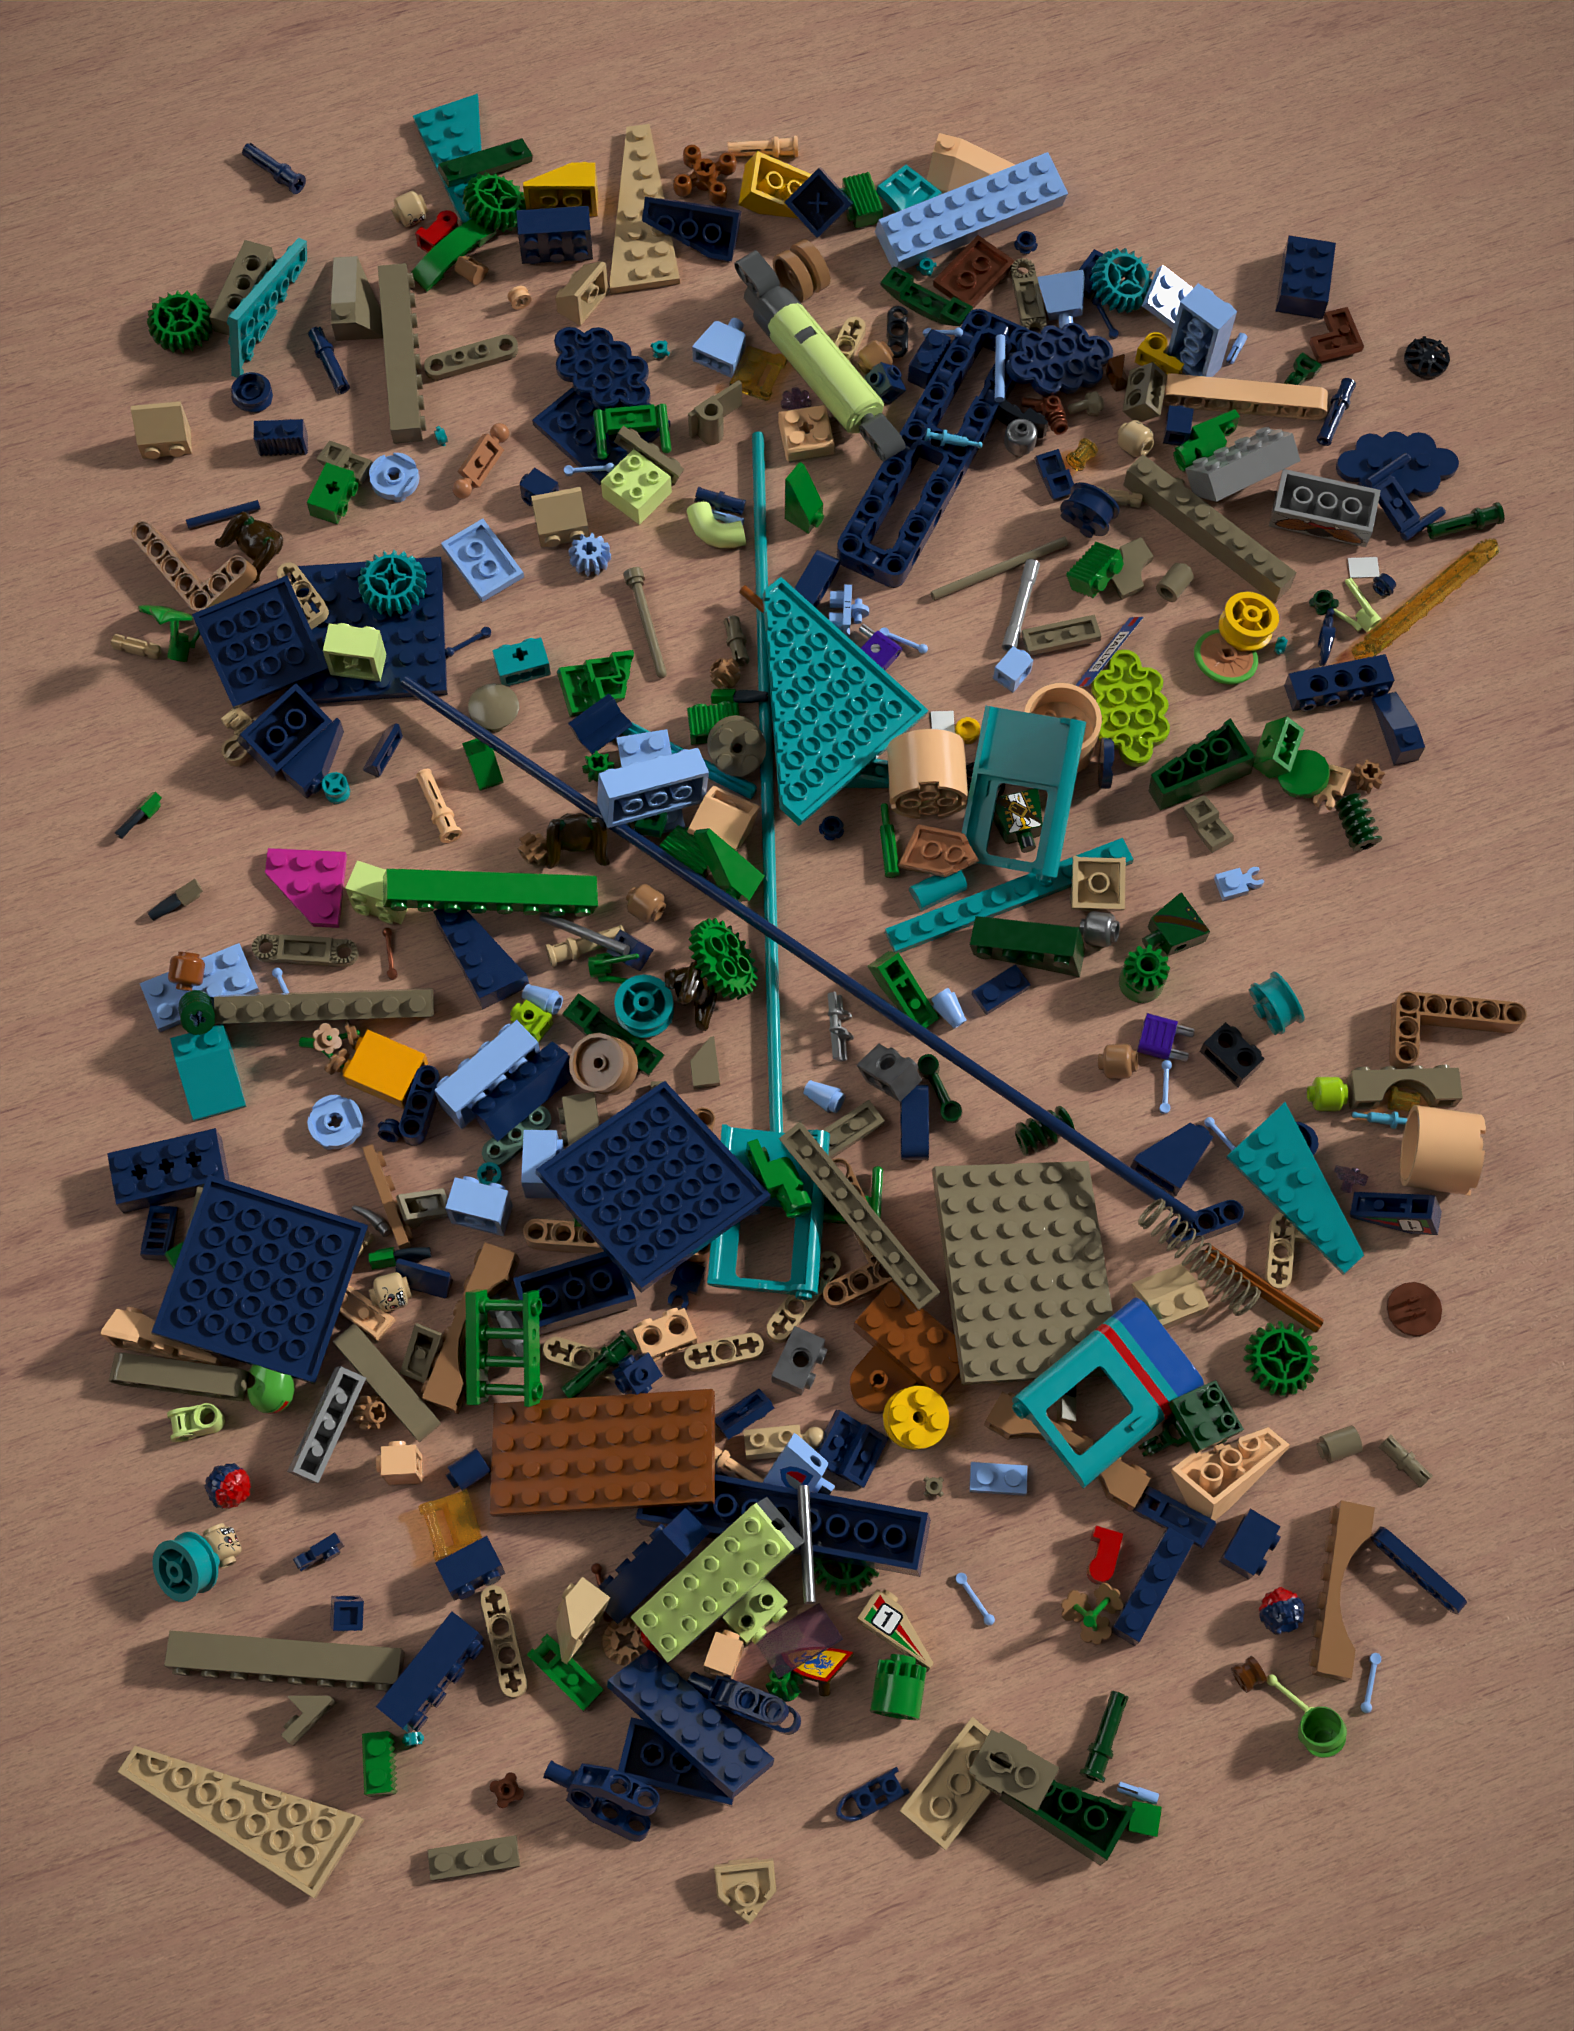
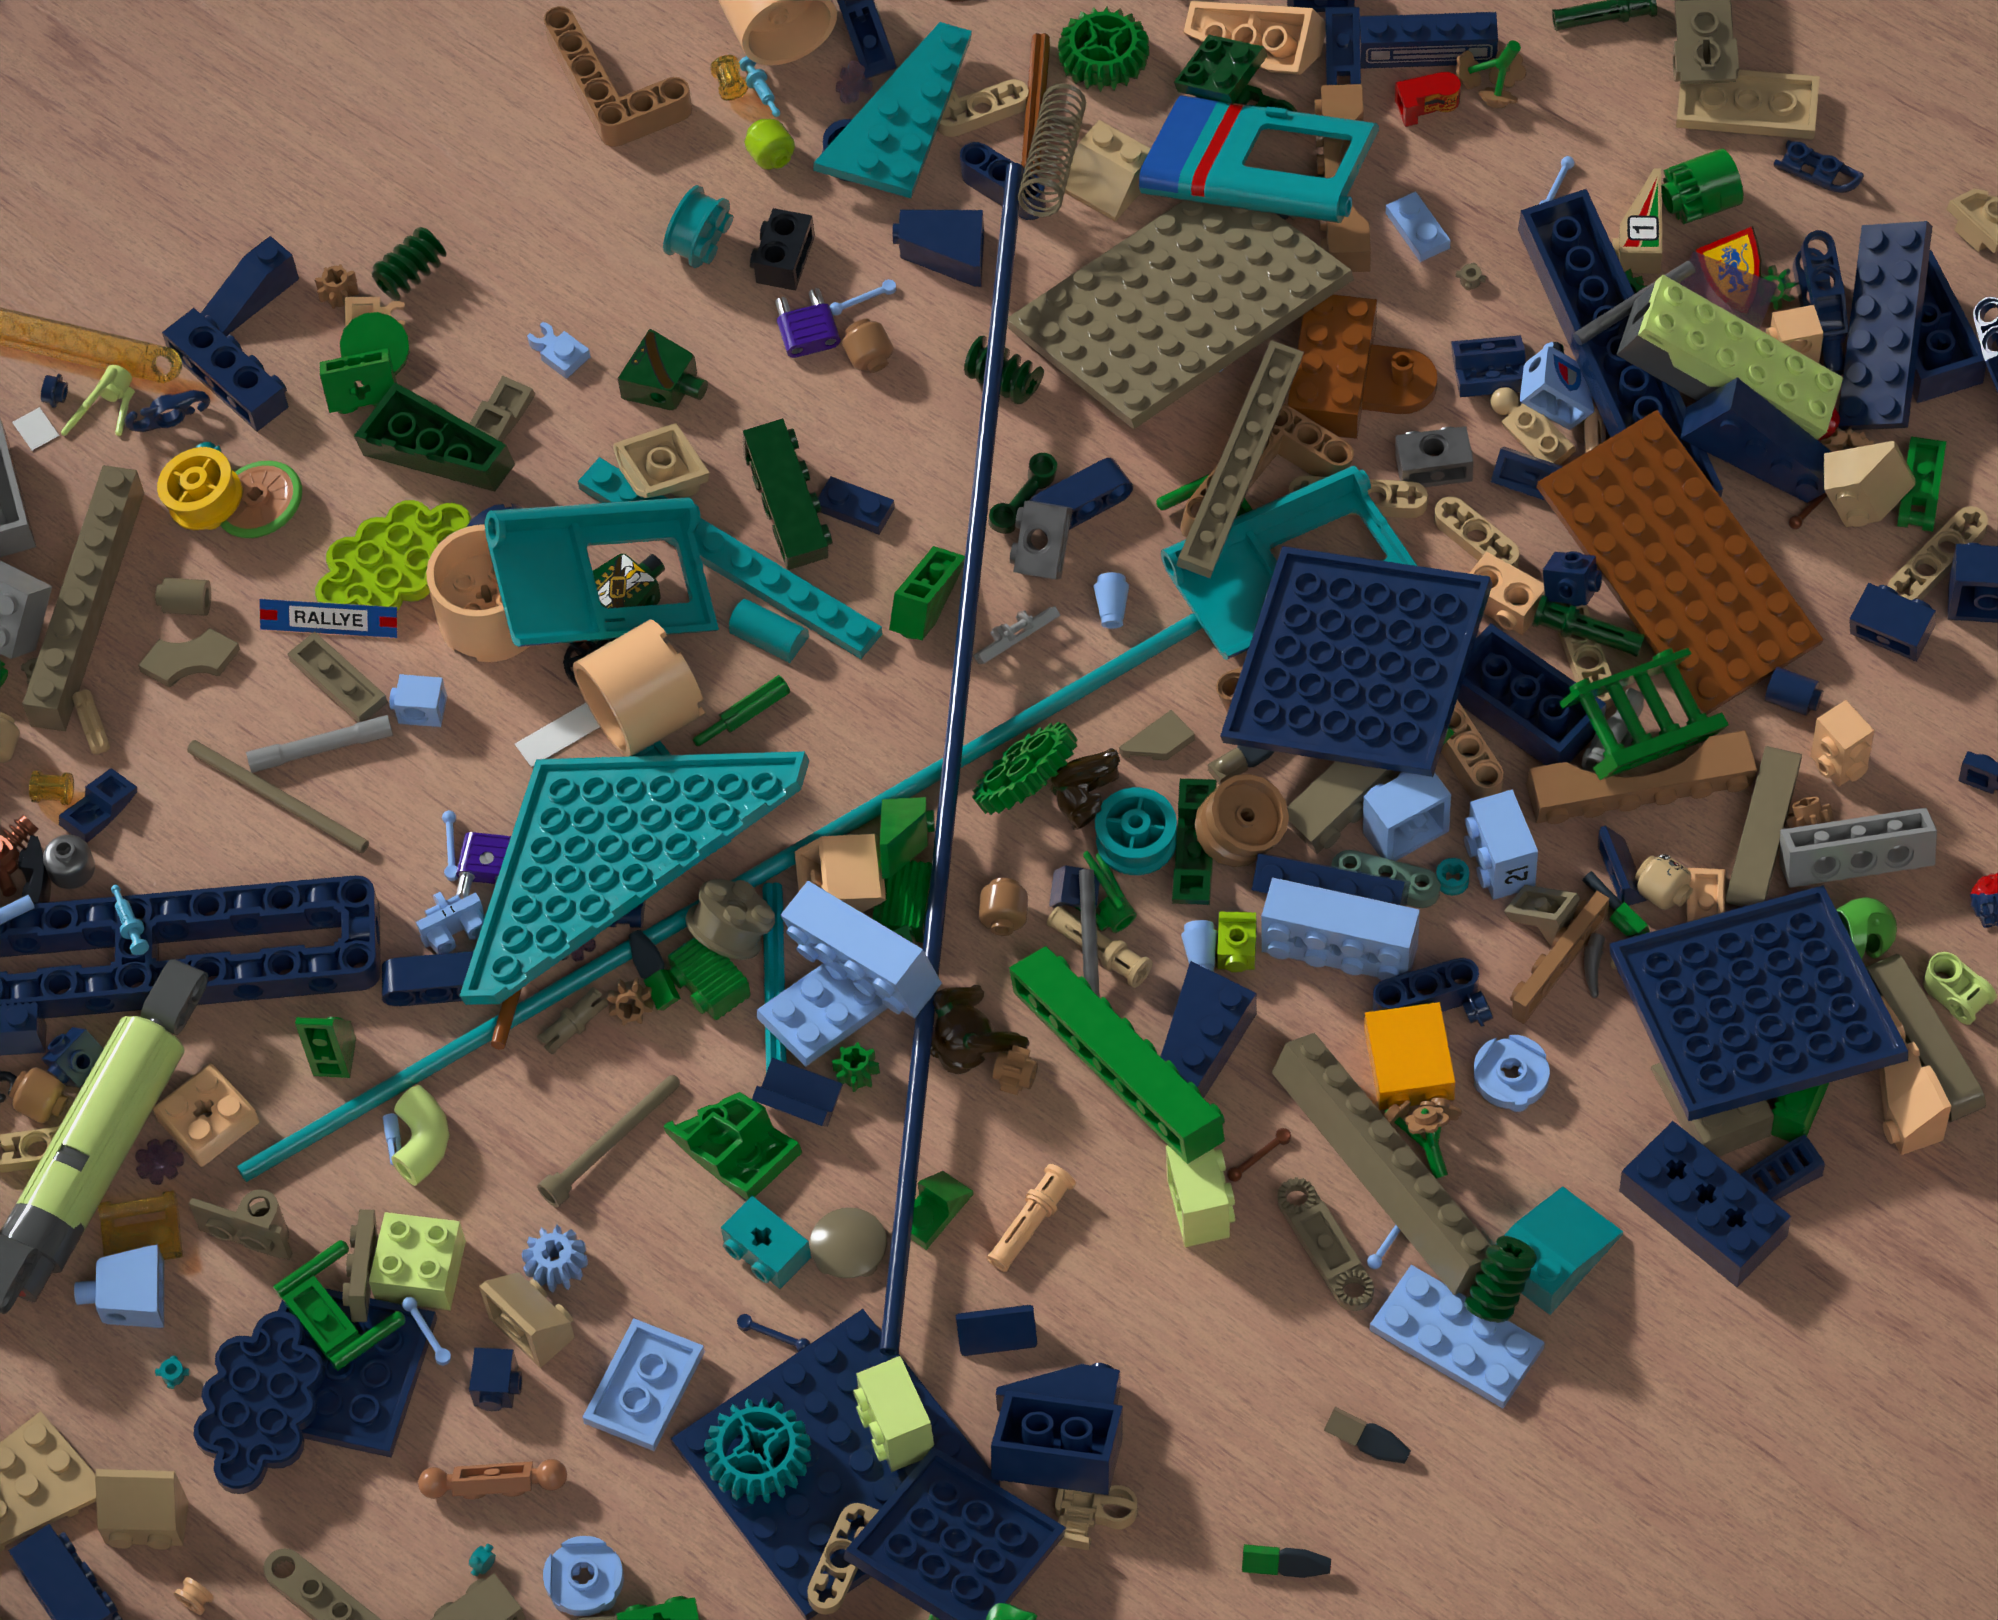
camera: 115 degrees left, 10 degrees down
(186, 970) = (1454, 1336): dark orange head -> none
(310, 882) = (1231, 1302): dark pink plate -> none
(333, 782) = (1086, 1339): teal wheel -> none
(421, 1352) = (1706, 805): dark tan slope -> none
(460, 1520) = (1852, 670): clear yellow plate -> none
(720, 500) = (374, 1156): dark blue pin -> none
(779, 1179) = (1253, 561): green plate -> none
(853, 1127) = (1129, 554): dark tan plate -> none
(931, 1414) = (1414, 317): yellow wheel -> none
(937, 852) = (727, 643): nougat tile -> none
(949, 1008) = (915, 538): light blue cone -> none
(968, 729) = (534, 711): yellow tile -> none
(1089, 509) = (142, 722): dark blue wheel -> none
(1095, 569) = (221, 682): green brick -> none
(1100, 929) = (715, 441): flat silver head -> none
(1144, 974) = (745, 368): green gear -> none
(1209, 1122) = (877, 238): light blue hinge -> none
(1323, 601) = (113, 428): dark green plate -> none
(1437, 1085) = (732, 109): dark tan arch -> none

